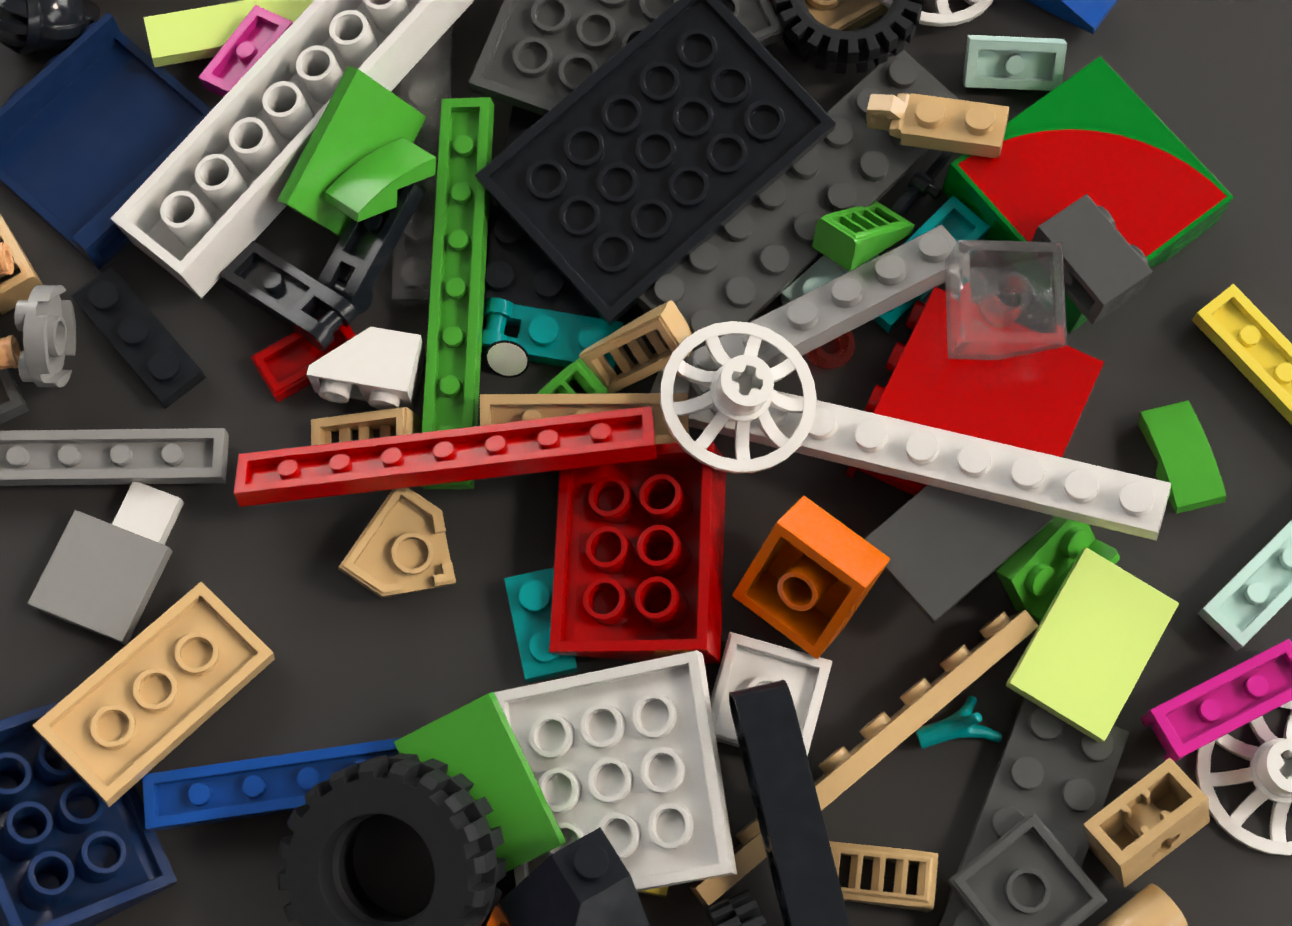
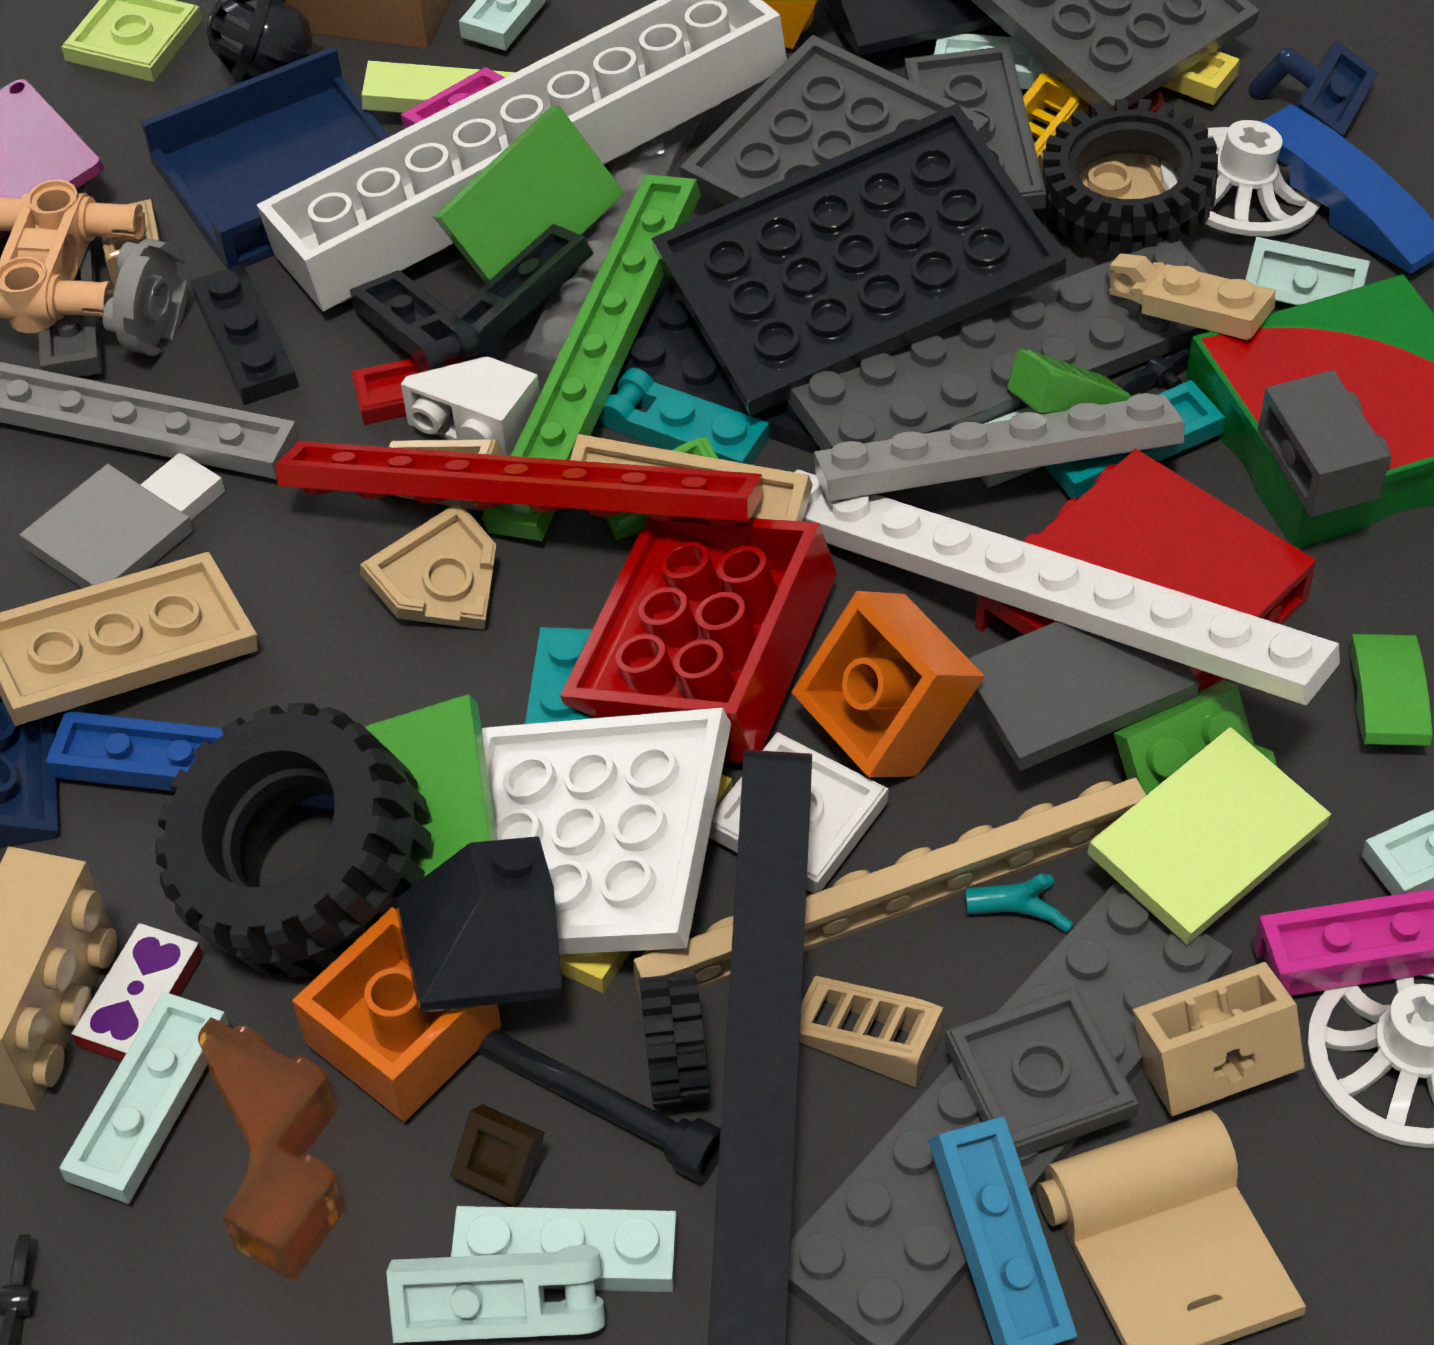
camera: 20 degrees right, 20 degrees down
(374, 180) = (542, 224): bright green slope -> none
(507, 359) = (627, 424): white sticker -> none
(663, 328) = (807, 421): tan slope -> none
(739, 392) = (865, 471): white wheel -> none
(843, 353) = (1014, 486): clear red plate -> none
(1004, 299) = (1203, 452): clear slope -> none

